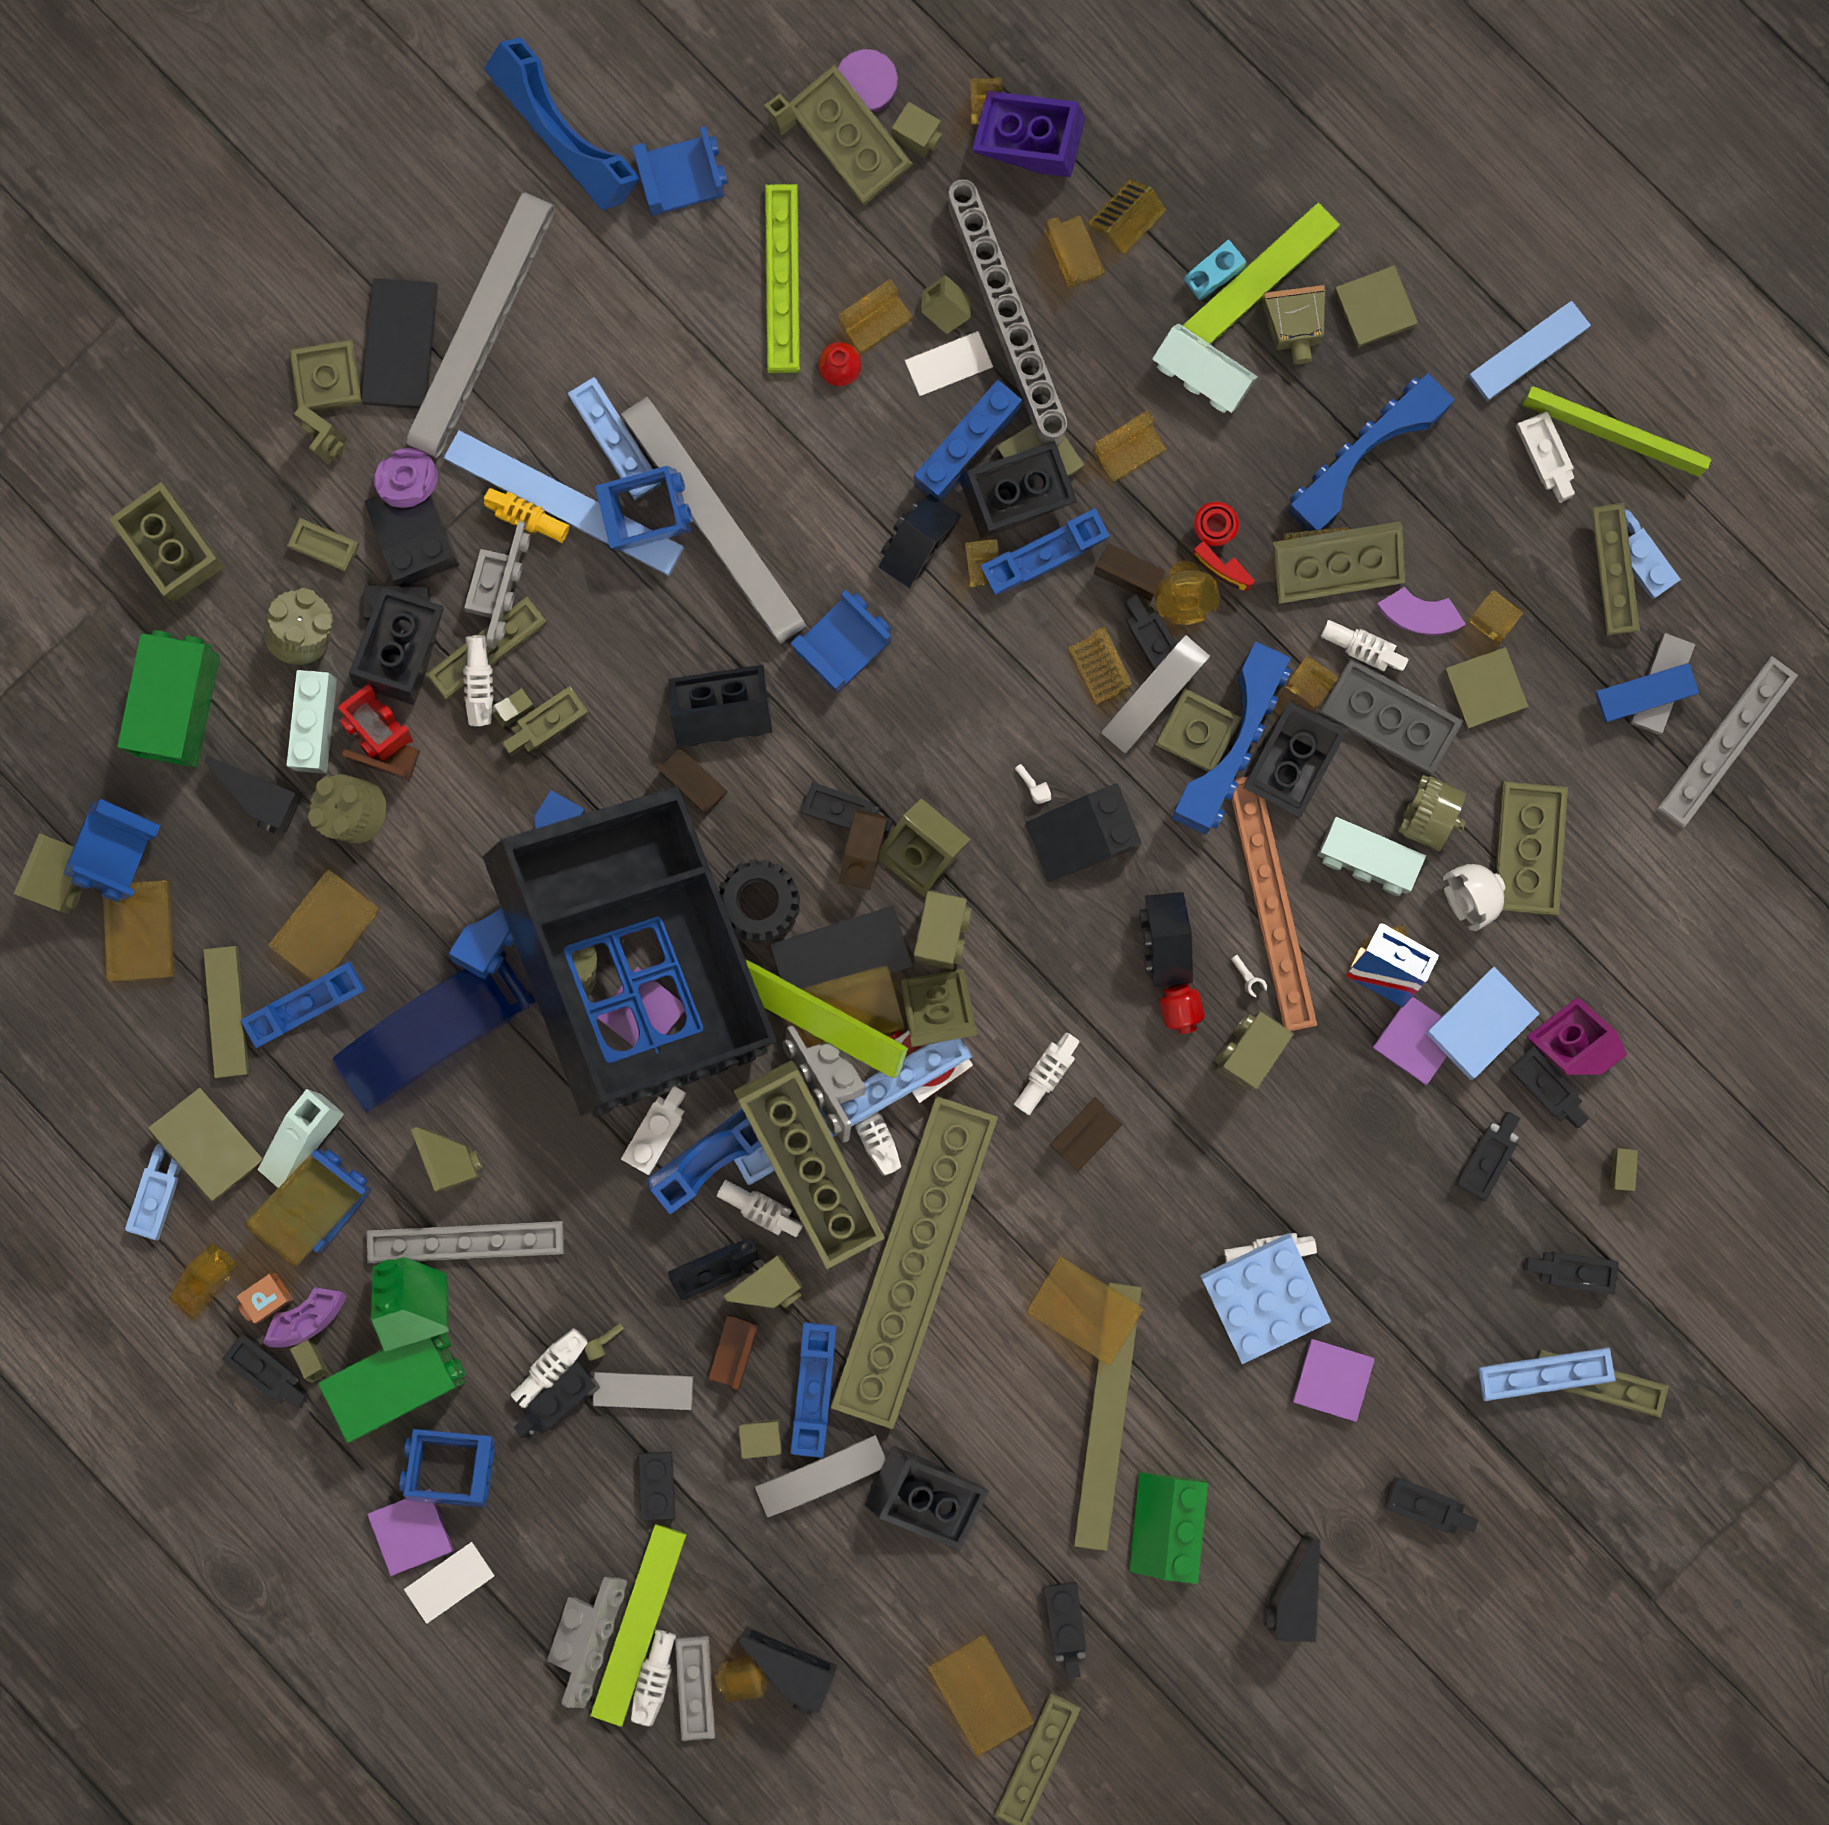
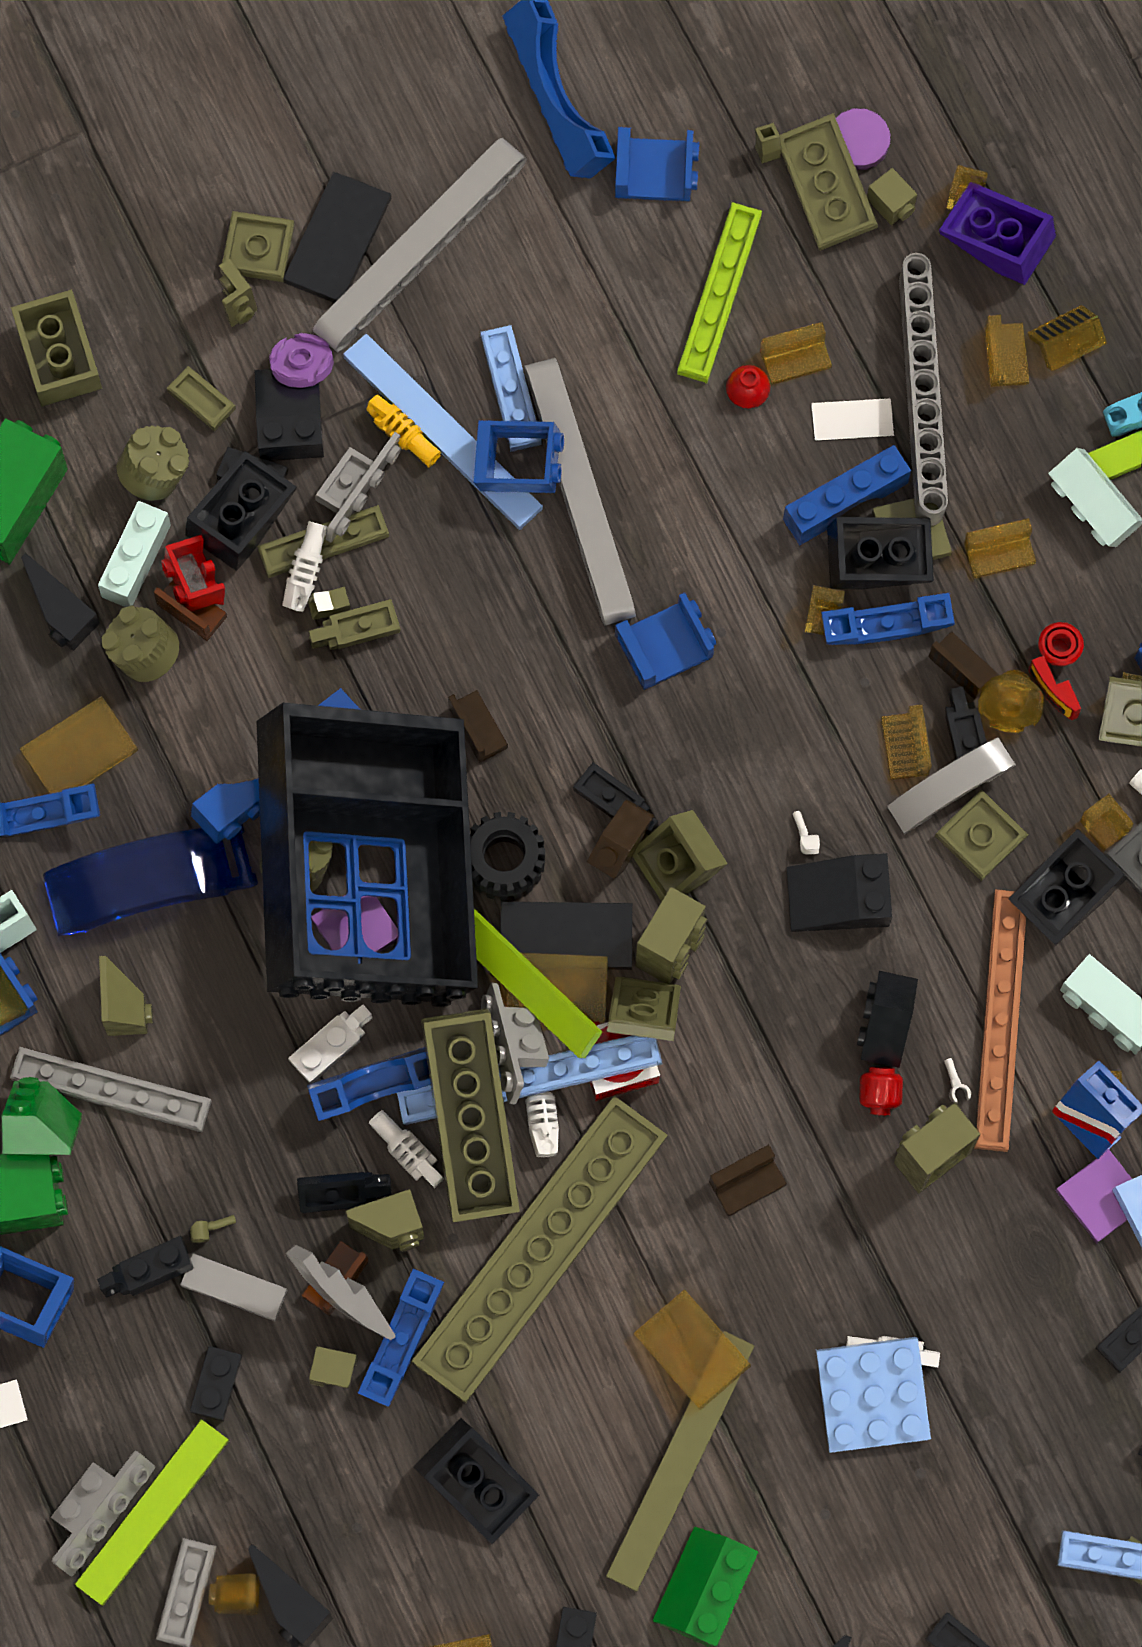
camera: 10 degrees right, 10 degrees down
(550, 1366) = (152, 1233): white hinge -> none
(653, 1680) = (148, 1570): white hinge -> none
(720, 706) = (528, 664): black slope -> none
(749, 1374) = (344, 1295): none -> light grey slope
(821, 1476) = (379, 1426): light grey slope -> none
(917, 539) = (768, 568): black brick -> none
(946, 304) = (867, 363): olive panel -> none
(1047, 1072) = (729, 1110): white hinge -> none
(1258, 681) = (968, 893): blue arch -> none
(1333, 1380) = (915, 1498): medium lavender tile -> none

